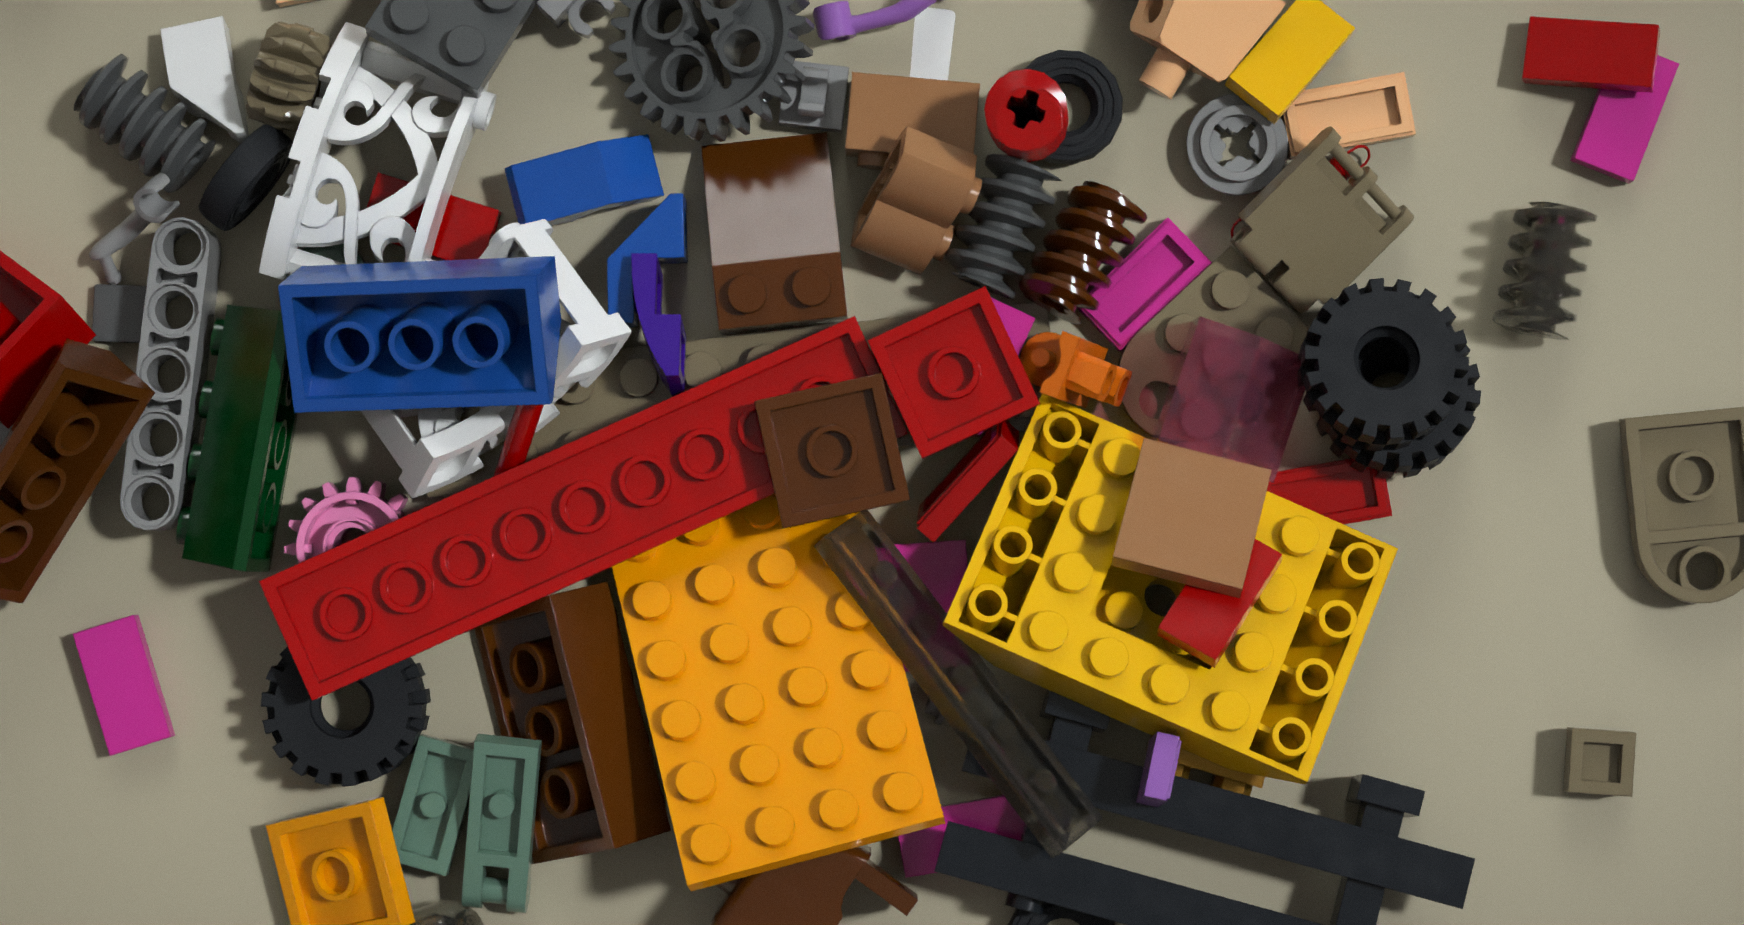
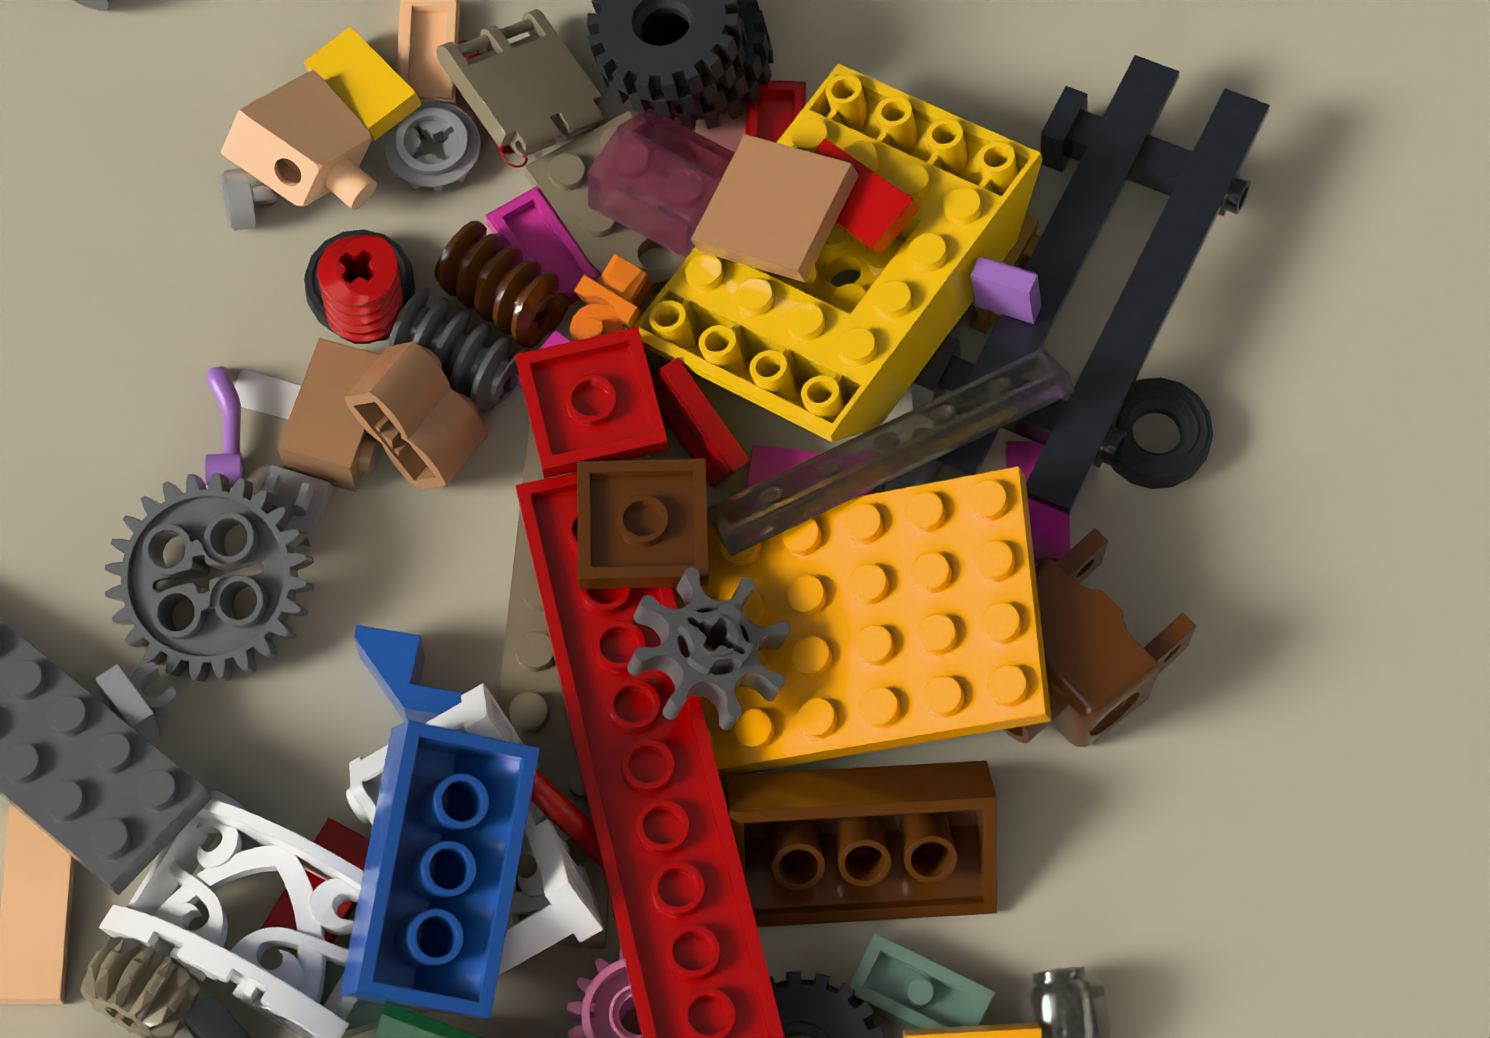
camera: 80 degrees left, 20 degrees down
(501, 821) = (949, 924): sand green plate -> none
(584, 180) = (319, 727): blue slope -> none
(662, 332) = (498, 663): dark purple slope -> none
(718, 567) = (696, 668): none -> dark grey gear
(773, 234) = (419, 561): reddish brown slope -> none

